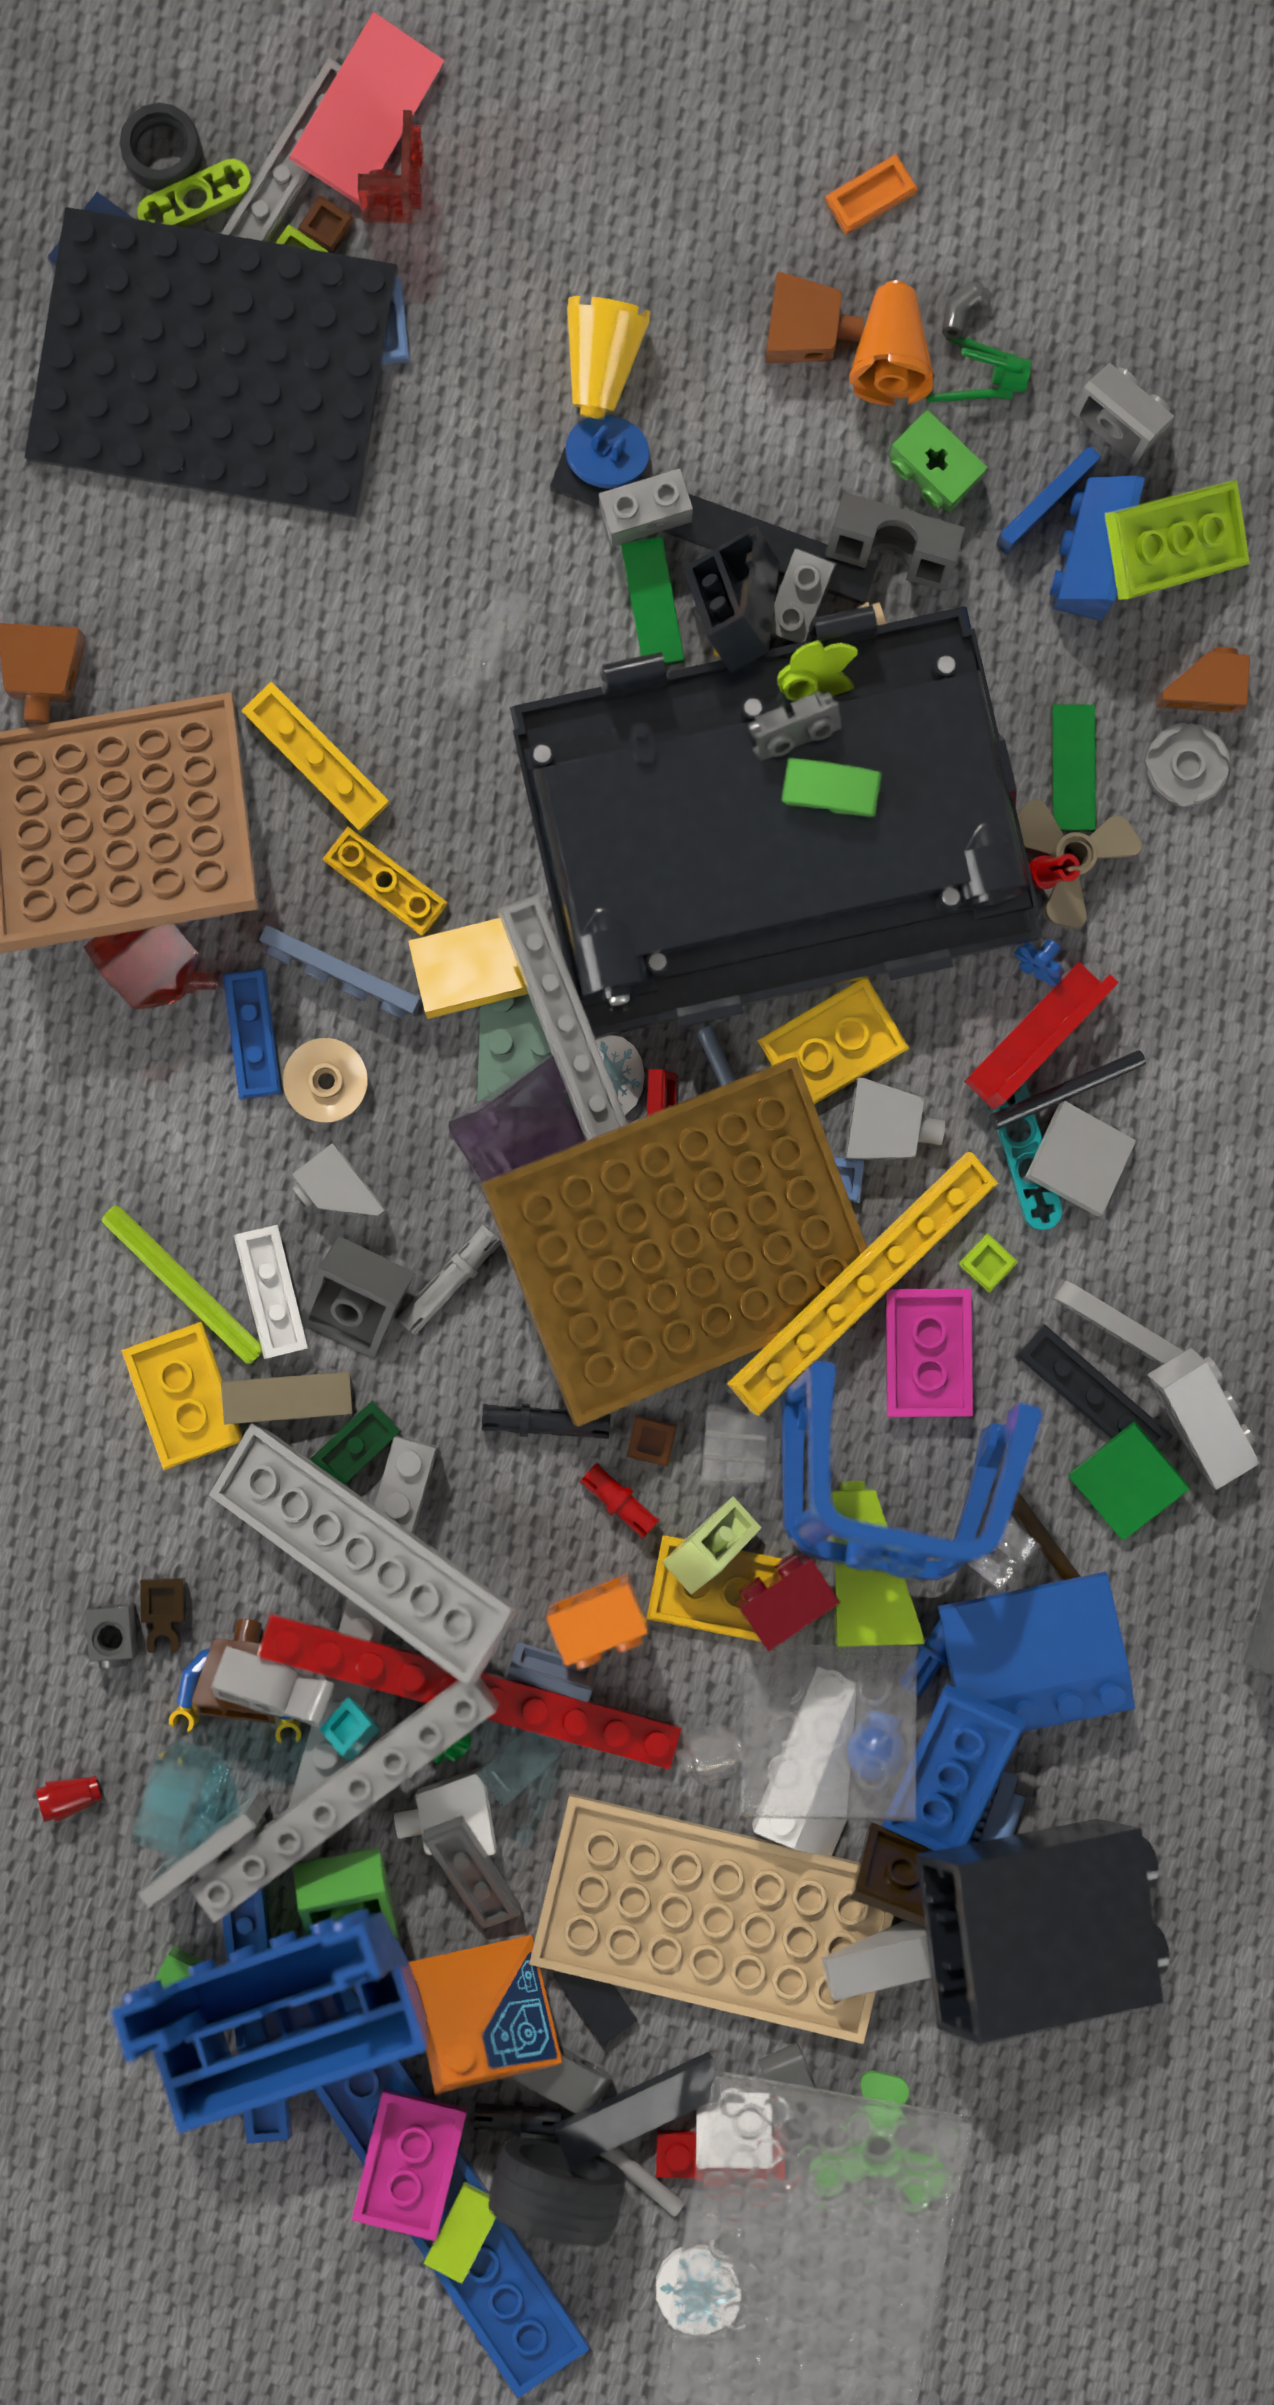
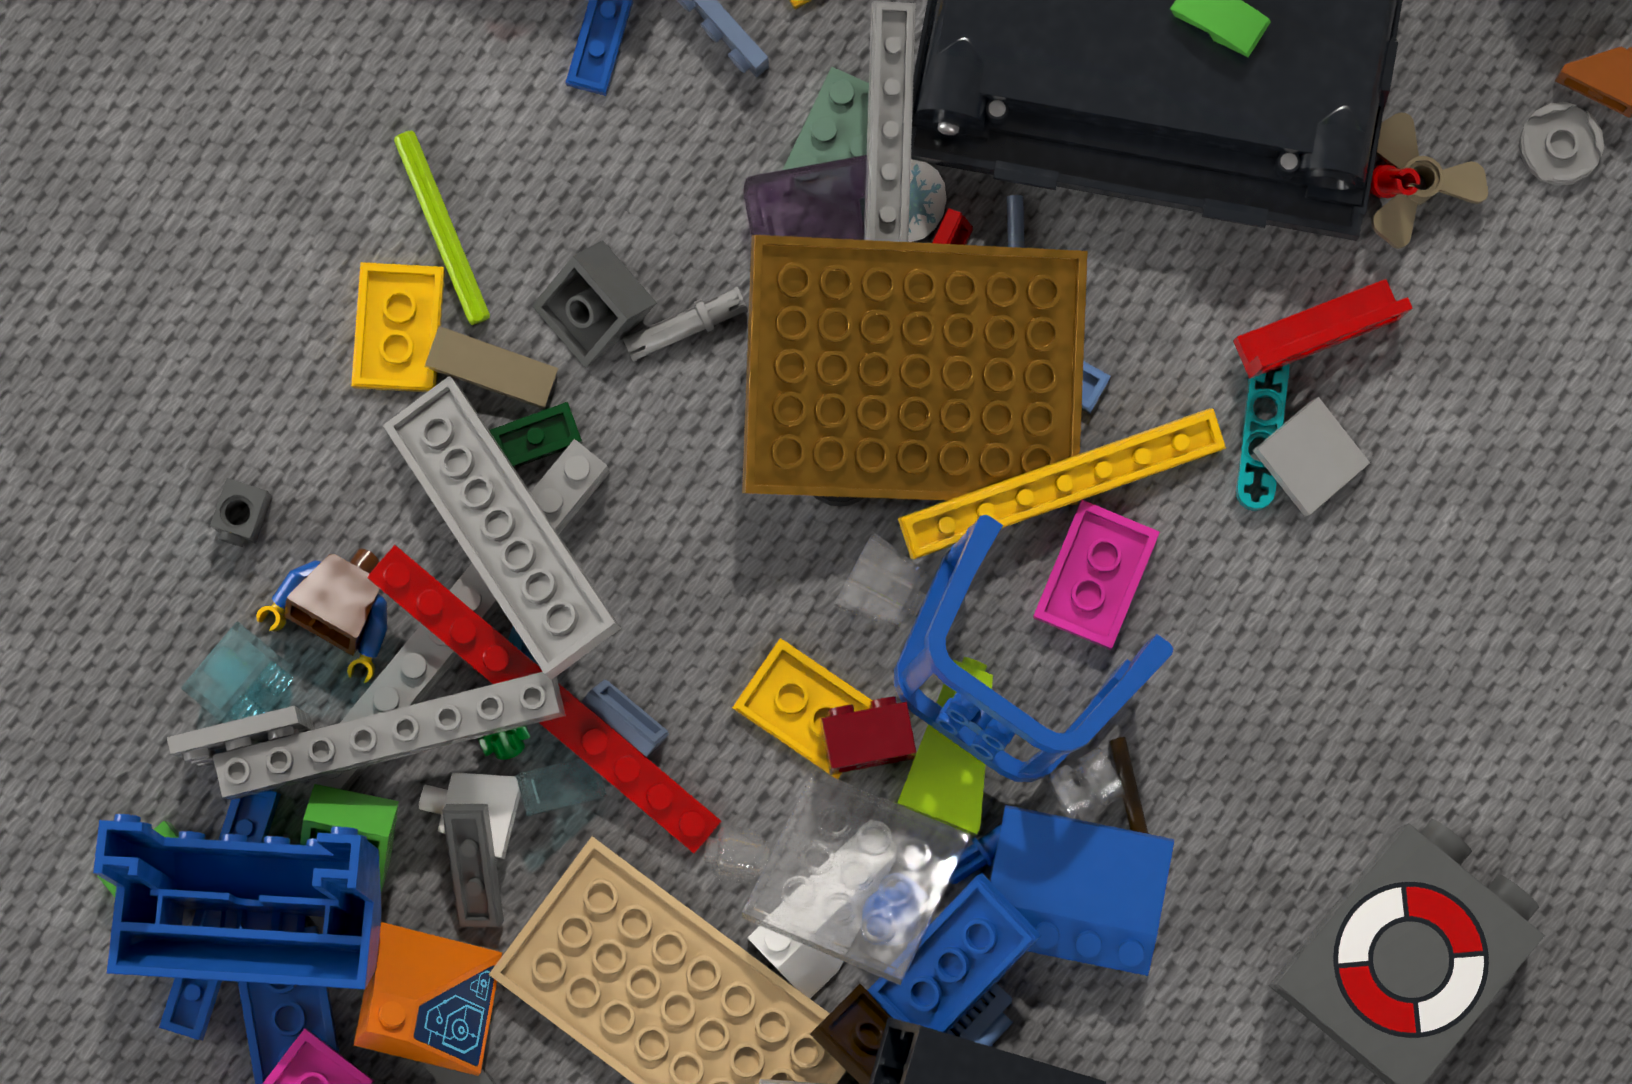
camera: 30 degrees right, 5 degrees down
(67, 1797) = (134, 643): red cone -> none
(163, 1604) = (297, 506): dark brown plate -> none
(270, 1291) = (518, 266): white plate -> none
(271, 1687) = (364, 611): light grey piece -> none
(303, 1075) = (647, 77): tan dish -> none
(335, 1185) = (618, 195): light grey slope -> none
(349, 1729) = (420, 680): teal tile -> none
(465, 968) = (821, 50): yellow tile -> none
(540, 1421) = (711, 485): black pin -> none
(597, 1621) = (687, 680): orange brick -> none
(598, 2005) = (535, 1041): black tile -> none
(619, 1500) = (754, 589): red pin -> none
(651, 1441) = (807, 548): reddish brown tile -> none
(712, 1545) = (821, 661): yellowish green slope -> none
(837, 1040) = (1134, 258): yellow tile -> none
(888, 1124) = (1147, 351): light grey torso -> none
(987, 1263) = (1185, 517): lime tile -> none
(1041, 961) = (1350, 263): blue plant -> none
(1067, 1090) = (1325, 389): black bar -> none
(1073, 766) = (1455, 102): green tile -> none
(1086, 1387) = (1232, 680): black tile -> none
(1116, 1323) = (1290, 634): light grey beam -> none
(1128, 1481) = (1231, 769): green tile -> none
(1205, 1417) = (1326, 737): light grey brick -> none

